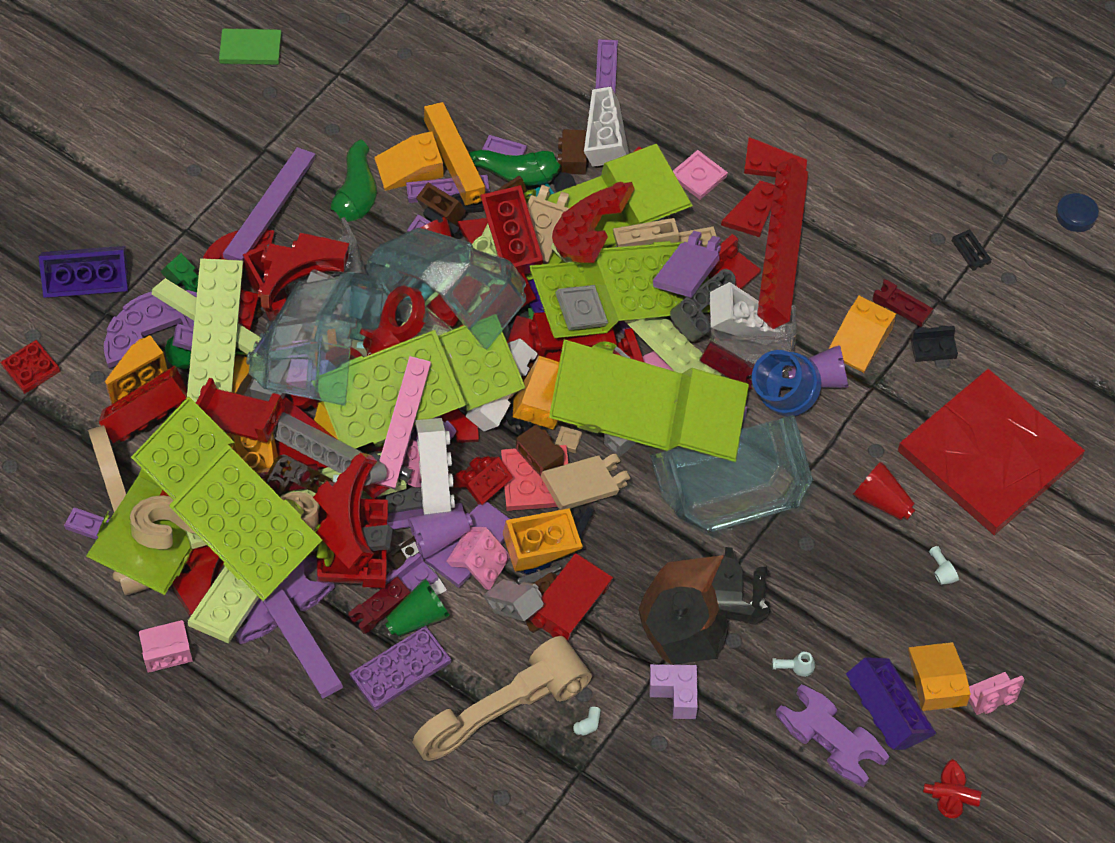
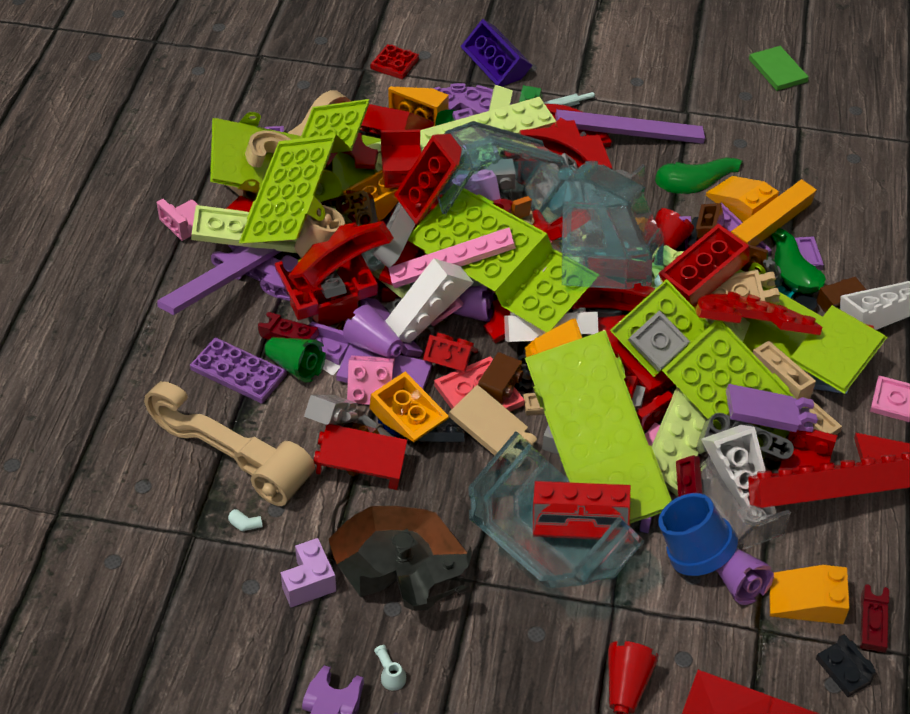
camera: 65 degrees right, 10 degrees down
(191, 240) = (571, 100): none -> light aqua axle
(313, 391) = (429, 175): none -> red slope
(533, 183) = (770, 266): none -> dark grey axle
(724, 451) = (578, 509): none -> red slope

